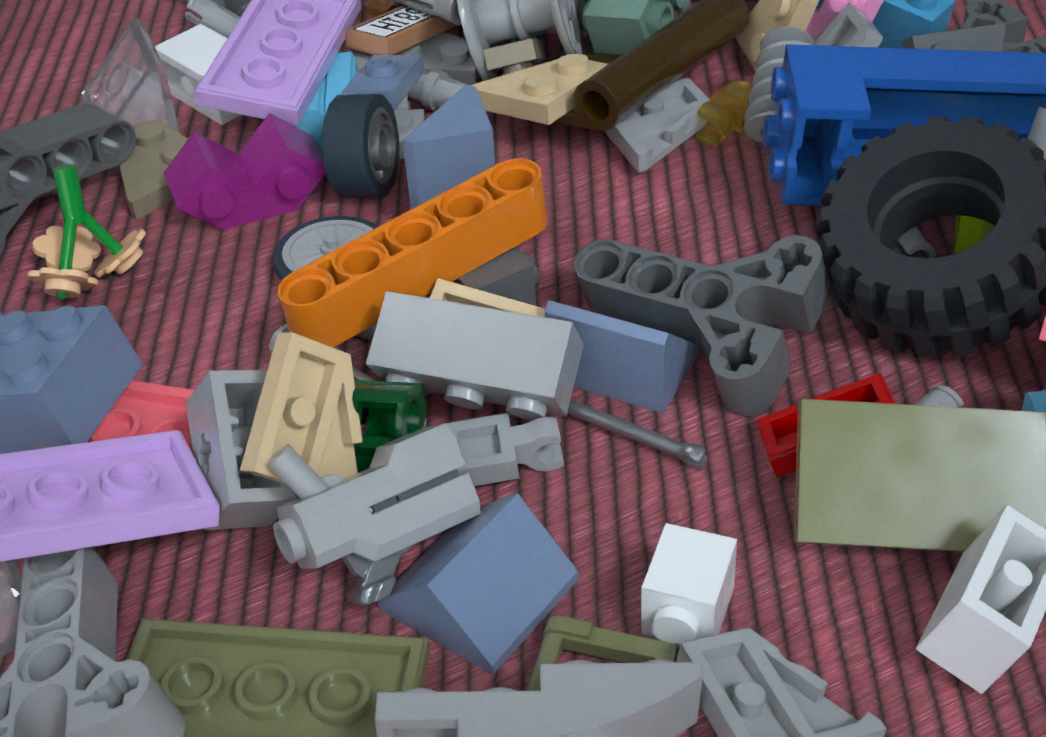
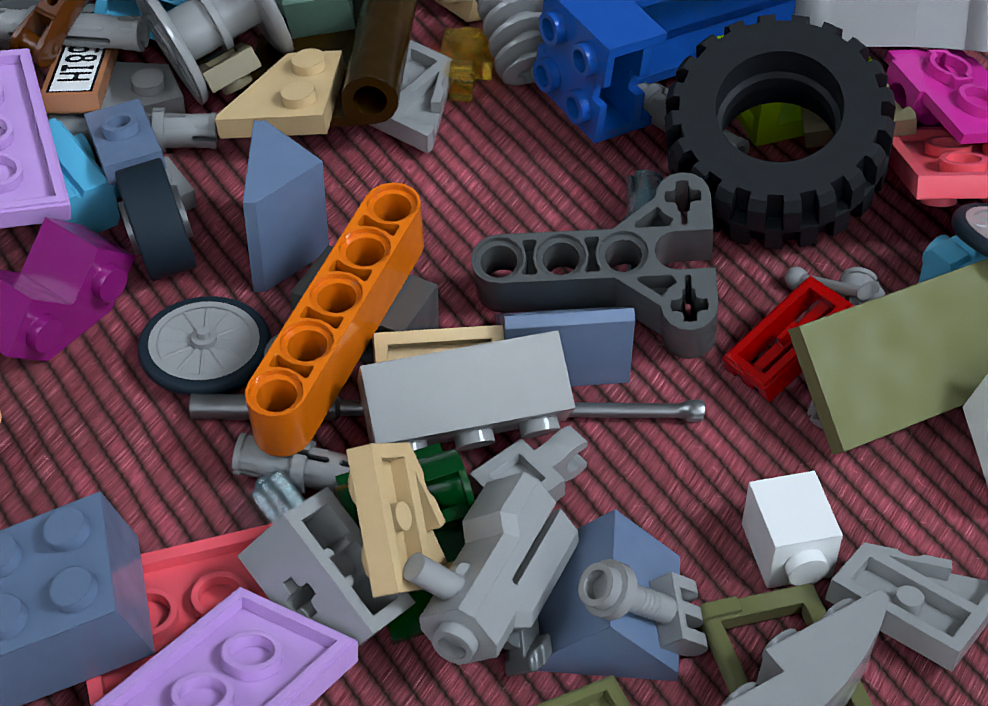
camera: 35 degrees left, 5 degrees up
(439, 549) = (612, 590): none -> light grey hinge
(896, 385) = (864, 293): none -> light grey hinge

